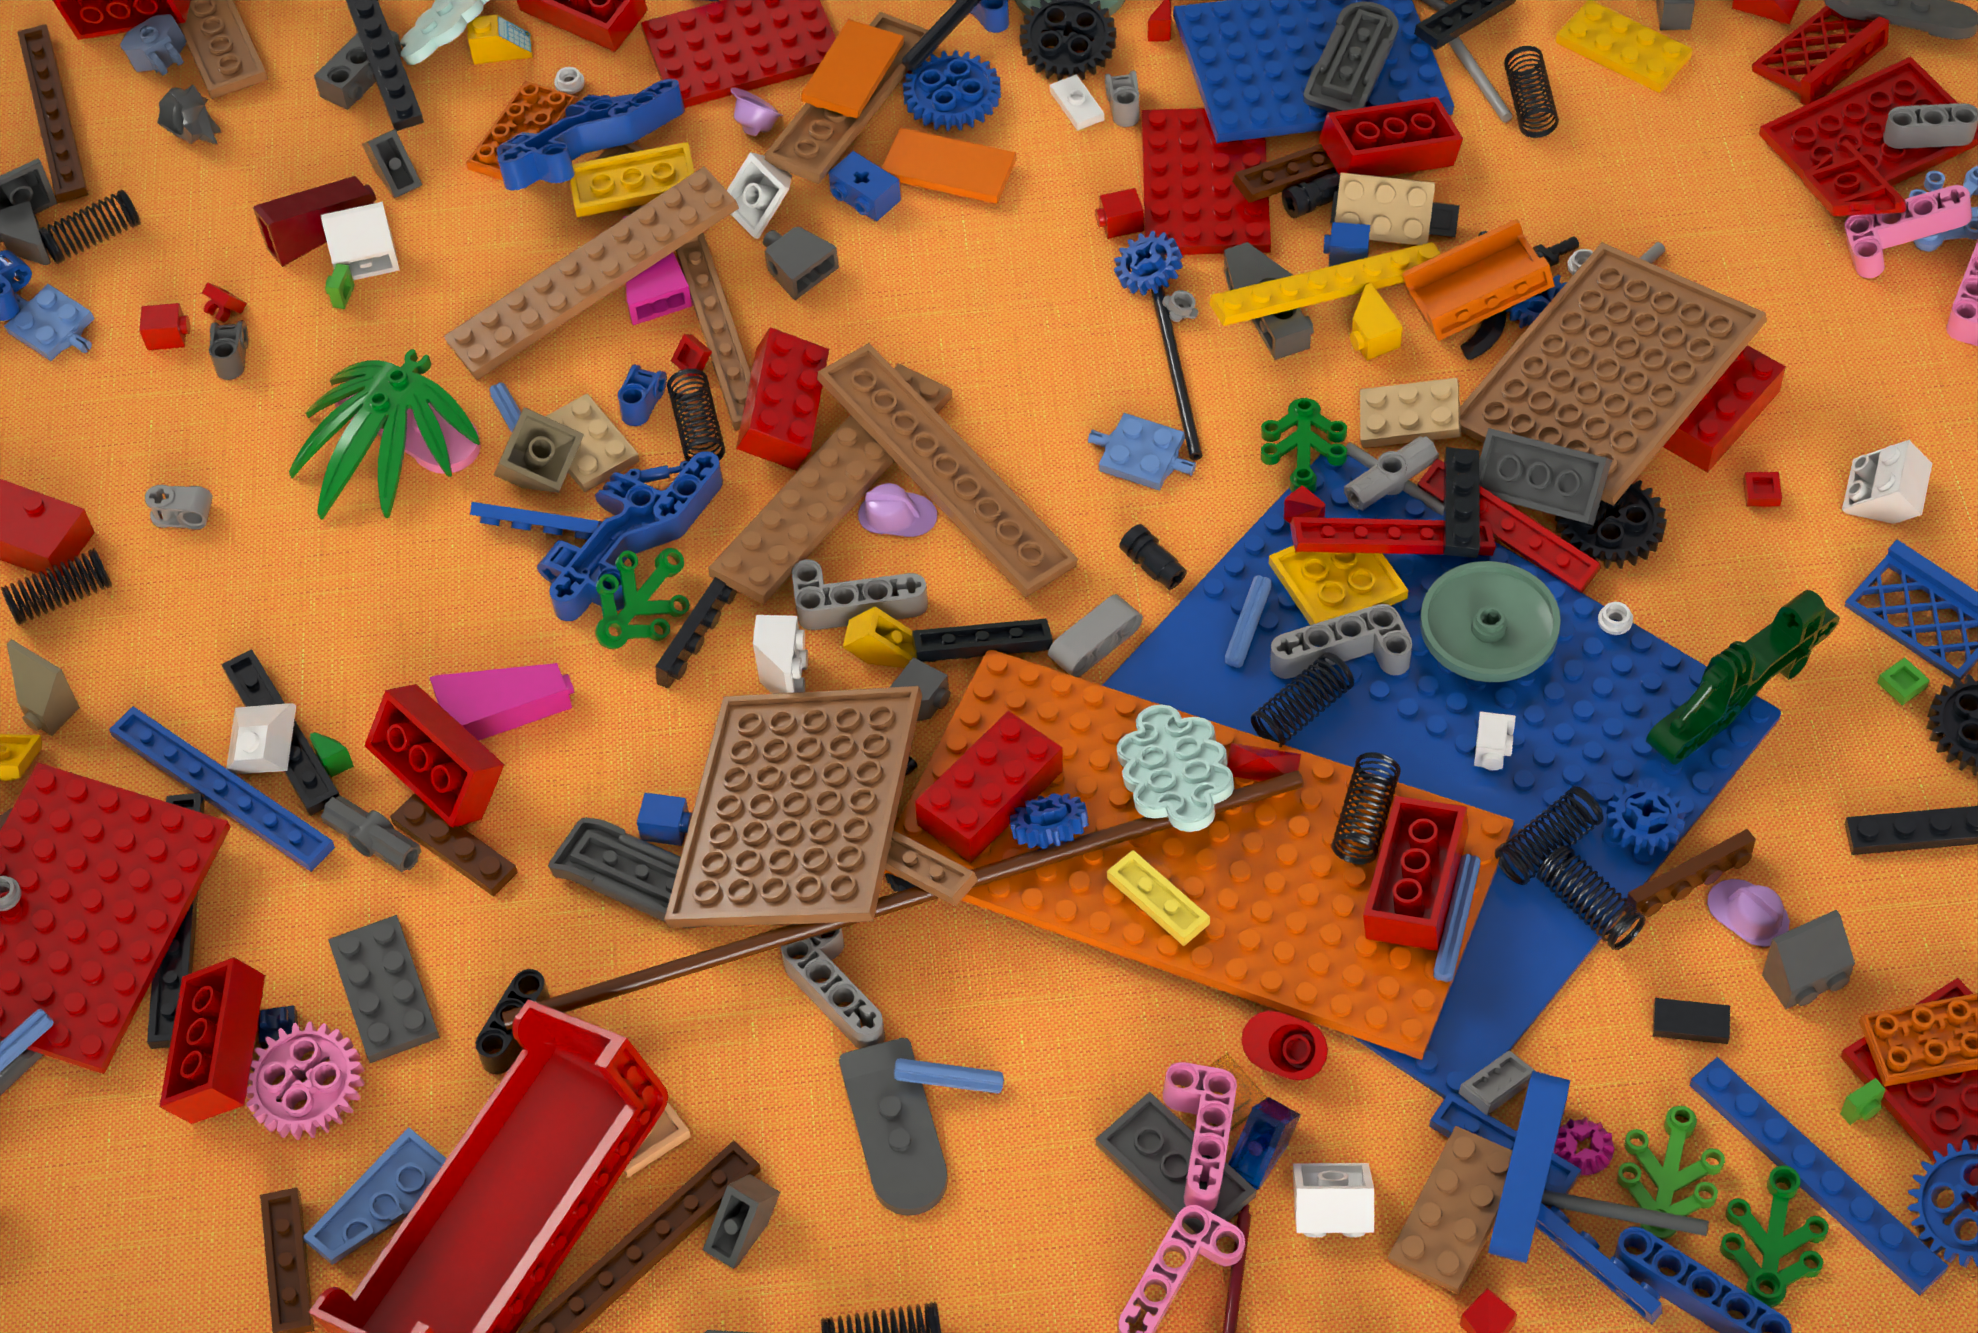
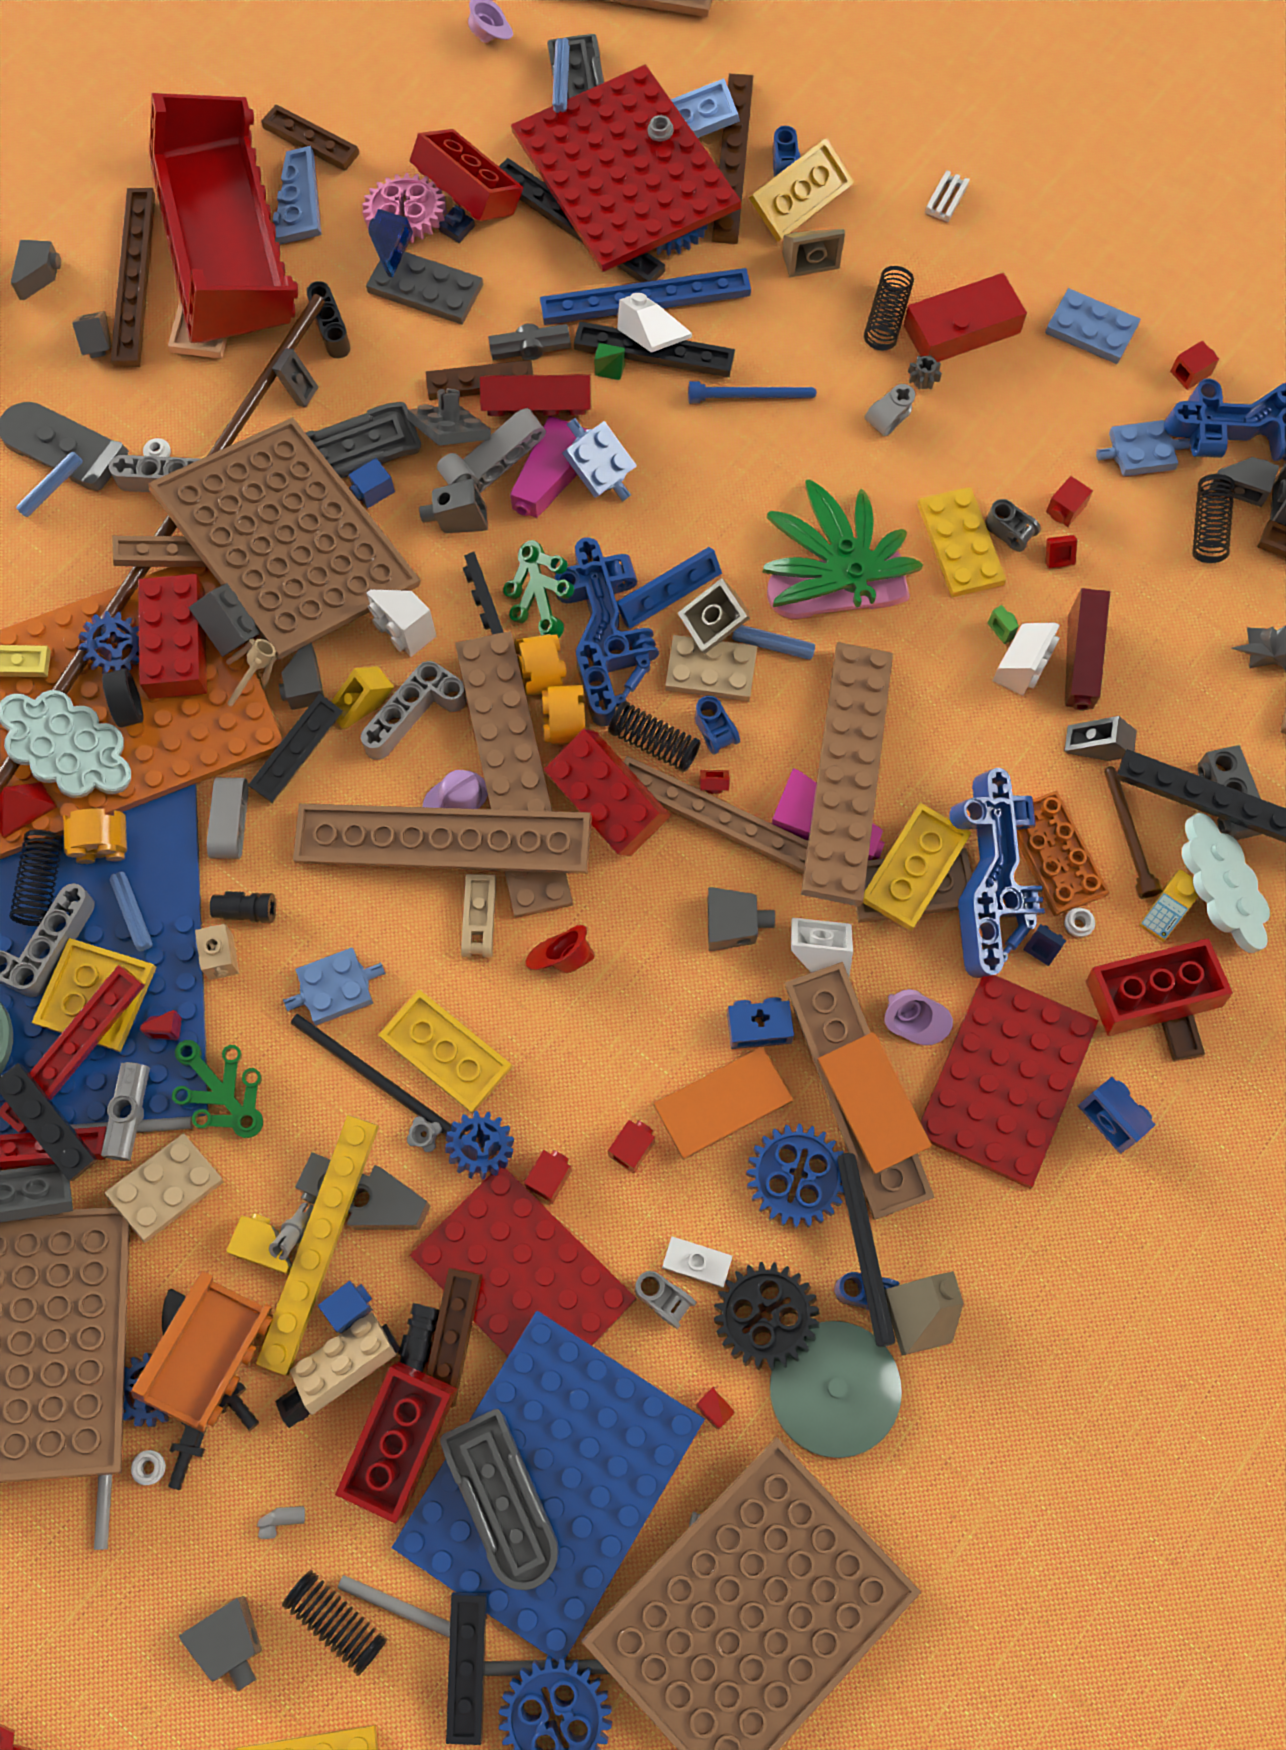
camera: 130 degrees right, 15 degrees up
(110, 513) = (924, 372): none -> dark grey gear
(277, 374) = (961, 542): none -> yellow plate
(298, 661) = (698, 392): none -> blue piece
(370, 1024) = (390, 238): none -> clear blue slope
(458, 655) = (599, 459): none -> plate
(494, 64) = (1147, 884): none -> reddish brown piece
(539, 735) = (495, 455): none -> light grey beam
(541, 788) = (449, 421): none -> dark grey plate
(610, 81) = (1044, 944): none -> dark blue tile
(615, 964) = (295, 377): none -> dark grey plate
(622, 720) = (457, 508): none -> dark grey torso
(711, 529) = (540, 663): none -> light orange brick
(744, 477) = (565, 713): none -> light orange brick
(814, 1041) = (154, 444): none -> white plate
(928, 749) = (224, 619): none -> dark grey slope
(937, 700) = (259, 655): none -> tan plant
(947, 333) = (564, 951): none -> red piece
(982, 407) = (478, 914): none -> tan plate
(1041, 187) = (632, 1145): none -> red brick
(1087, 757) = (122, 698): none -> black tyre
(1106, 343) = (445, 1051): none -> yellow plate
(1208, 537) = (216, 951): none -> tan head
(1221, 686) = (95, 835): none -> light orange brick
(1340, 305) = (291, 1232): none -> light grey pin
(1519, 173) = (279, 1516): none -> light grey arm
(1615, 136) = (225, 1643): none -> dark grey torso

